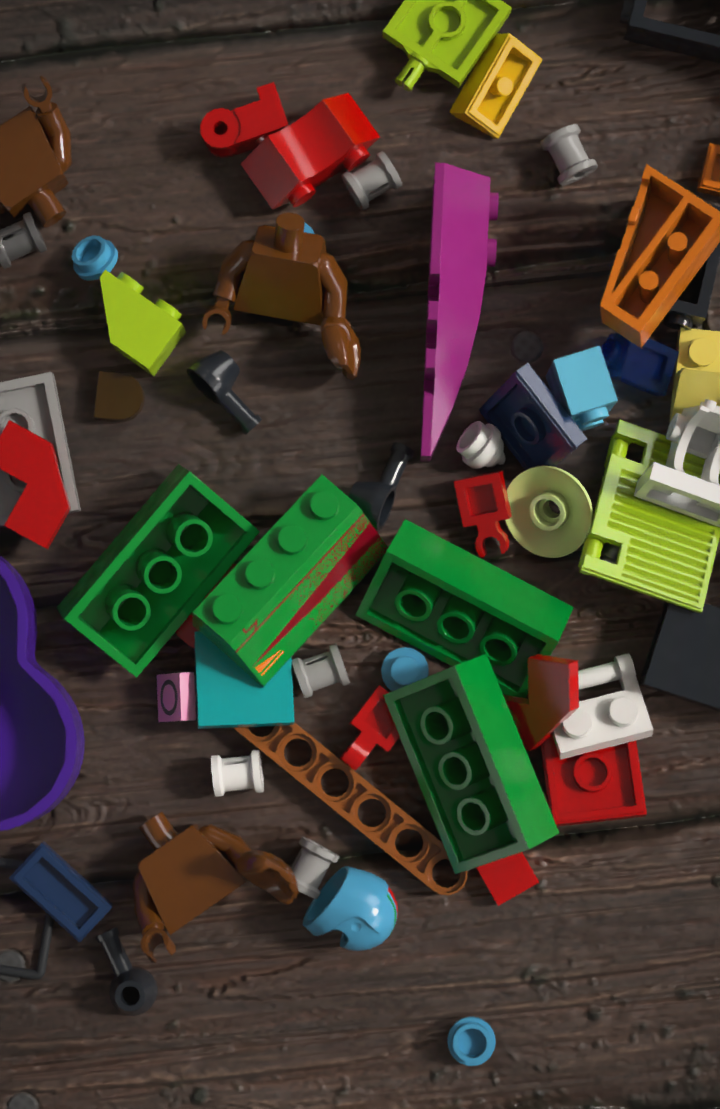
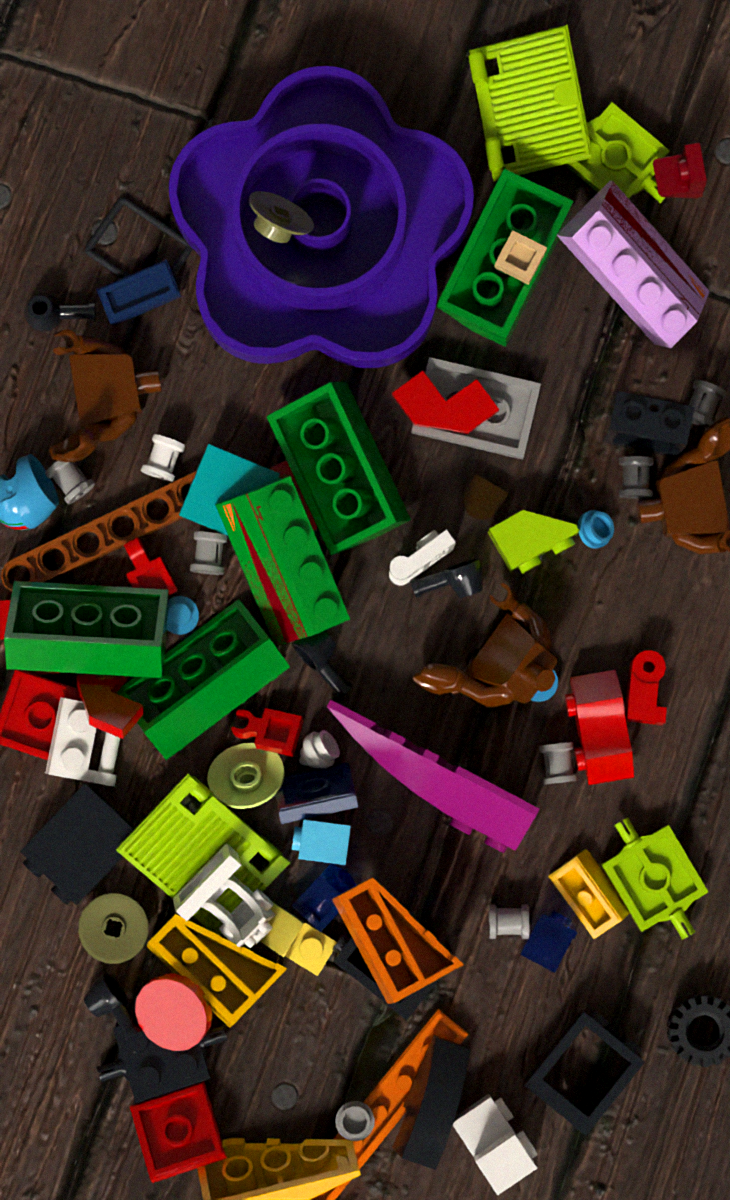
camera: 110 degrees right, 0 degrees up
(176, 697) = (239, 439): bright pink tile -> none
(206, 423) = (430, 550): none -> white plate
(567, 103) = (549, 940): none -> clear blue bracket

